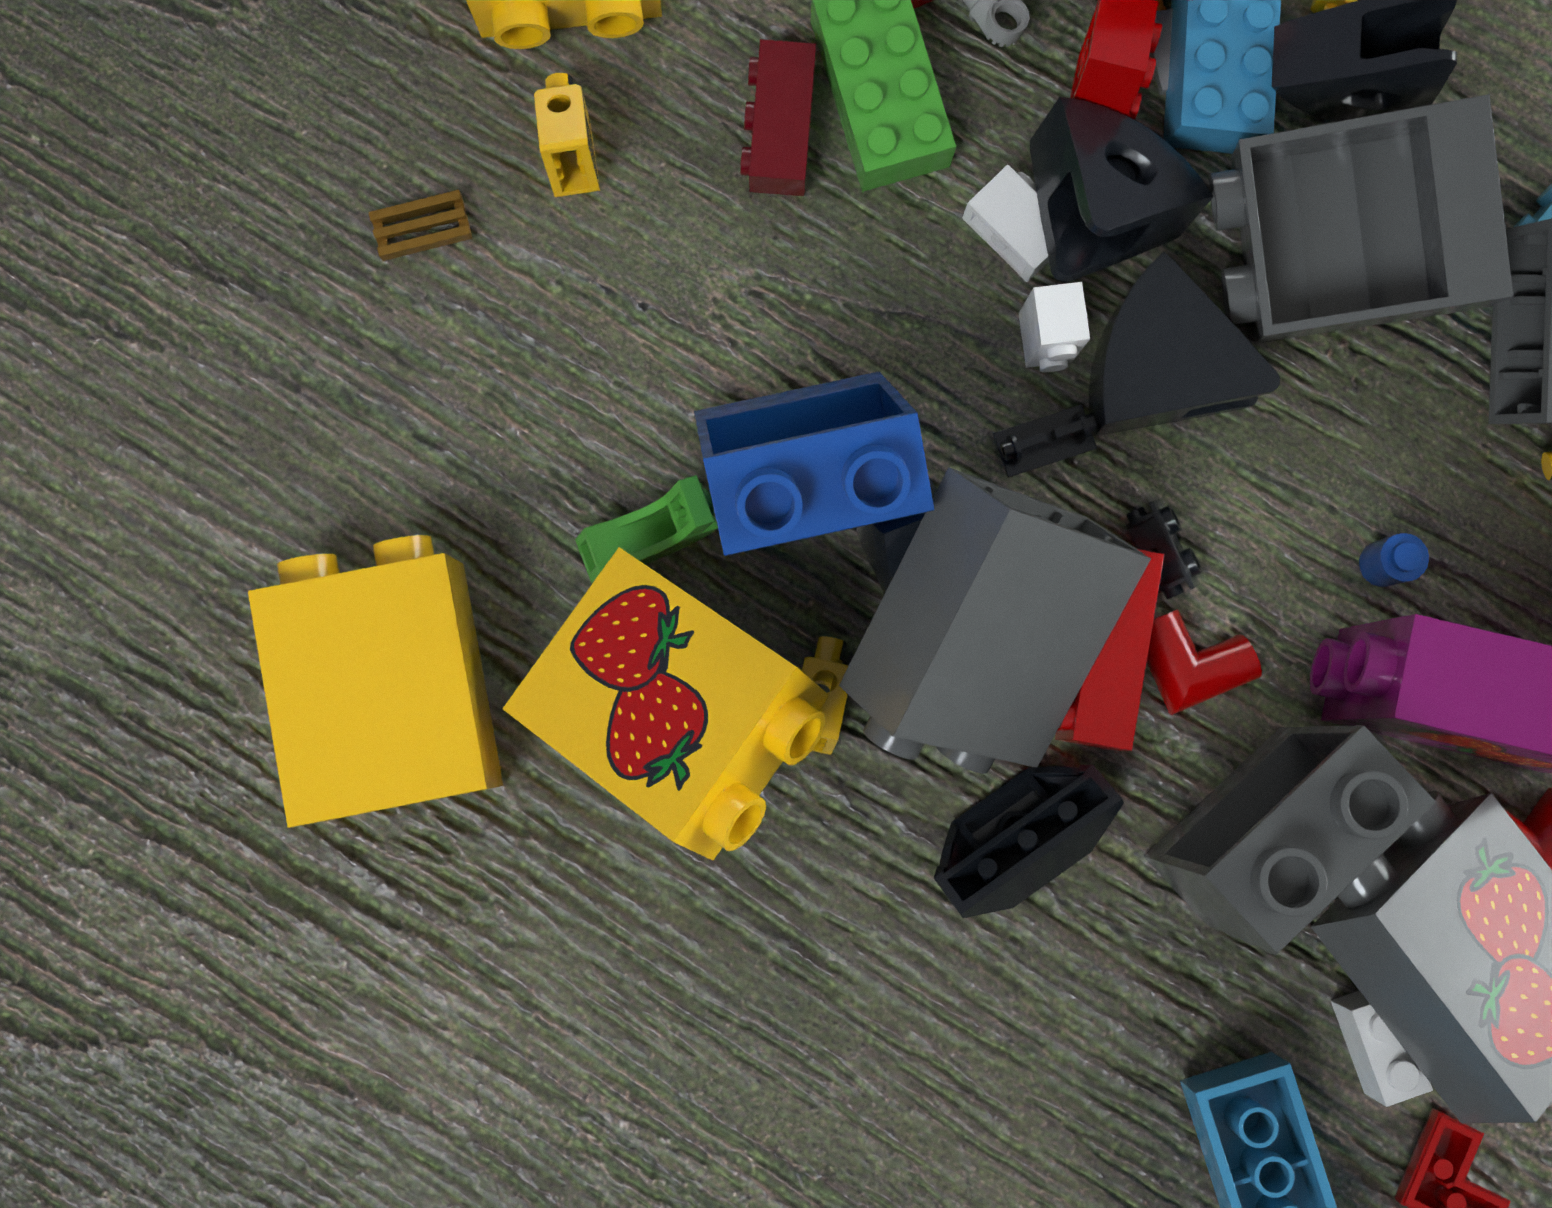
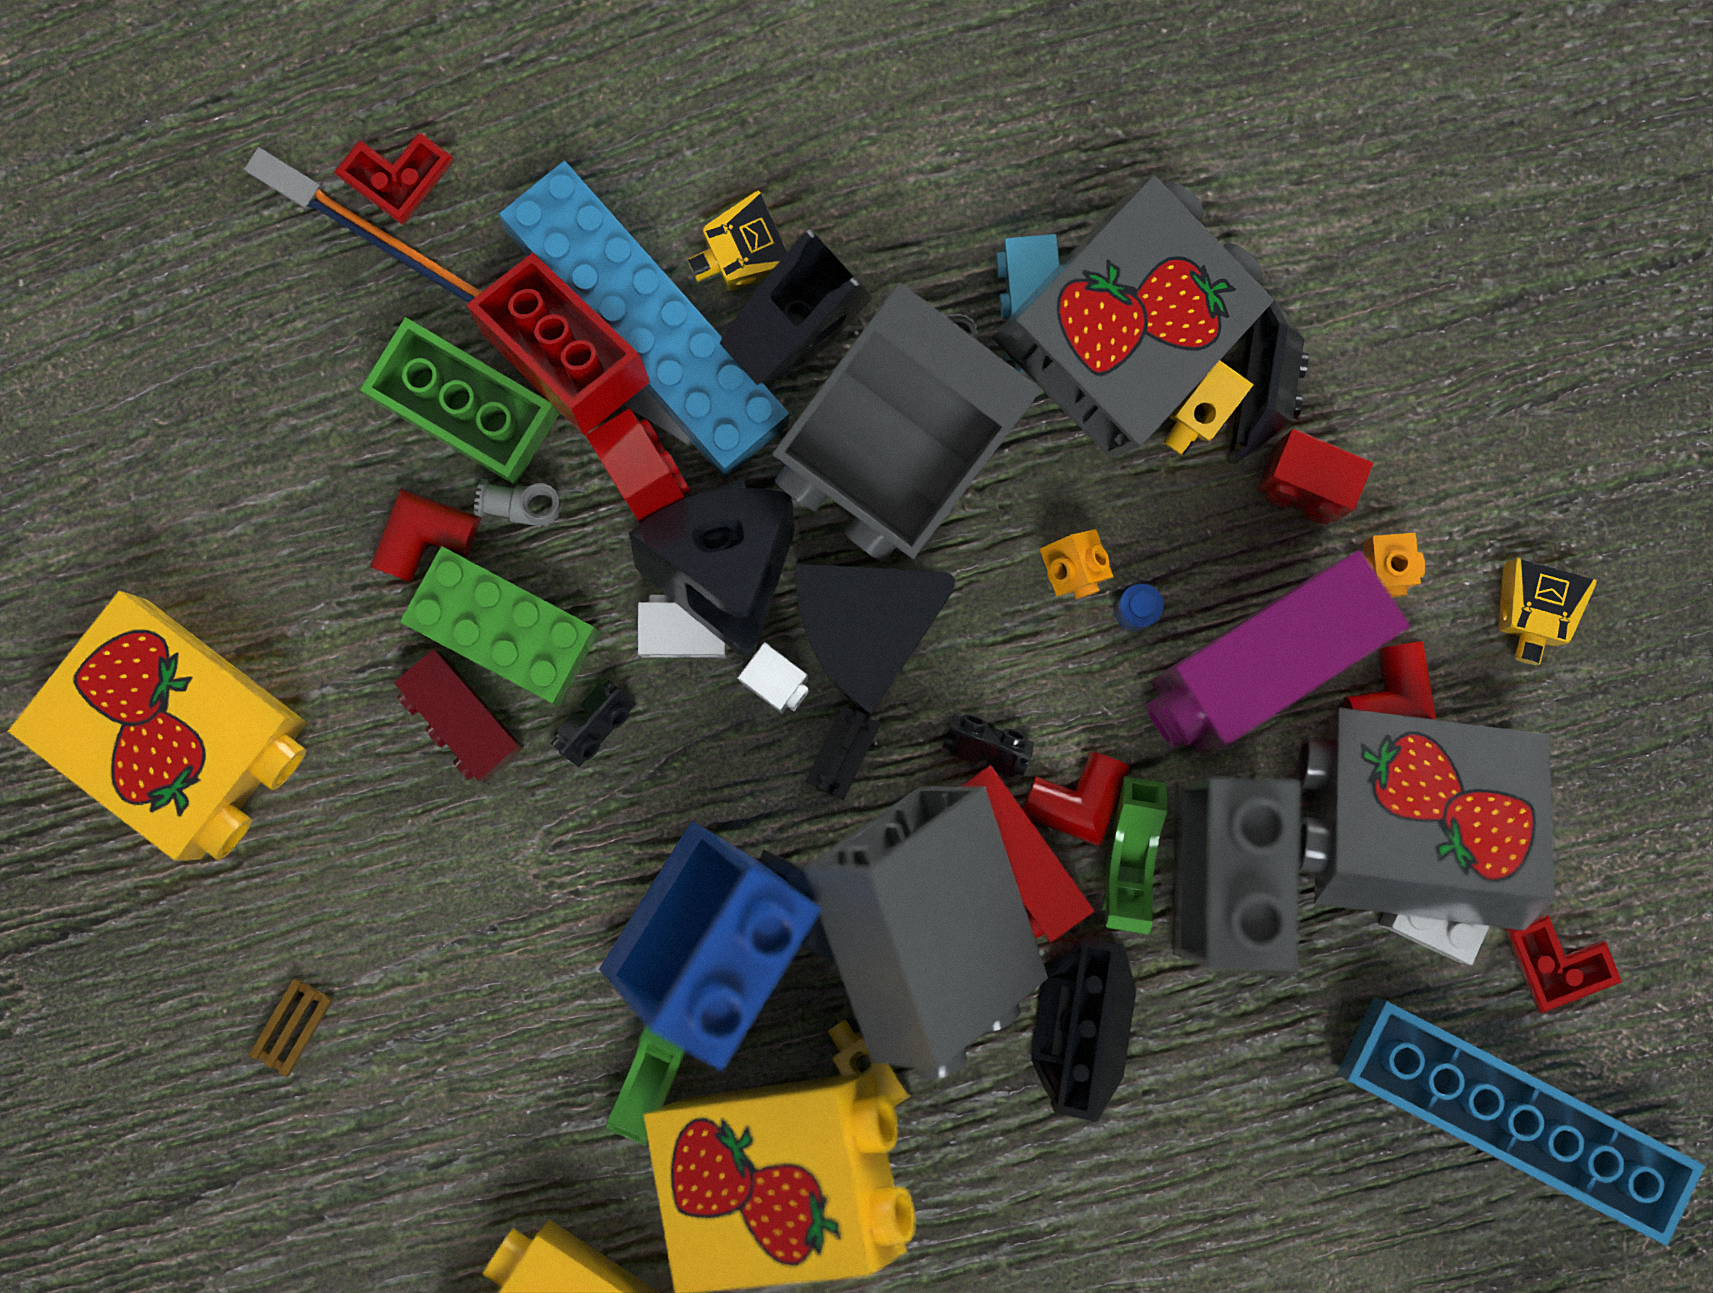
camera: 50 degrees left, 0 degrees up
(564, 127) = (329, 873): yellow torso -> none
(897, 227) = (581, 739): none -> black hinge
(1198, 742) = (1133, 855): none -> bright green arch
(1380, 477) = (1077, 564): none -> light orange brick

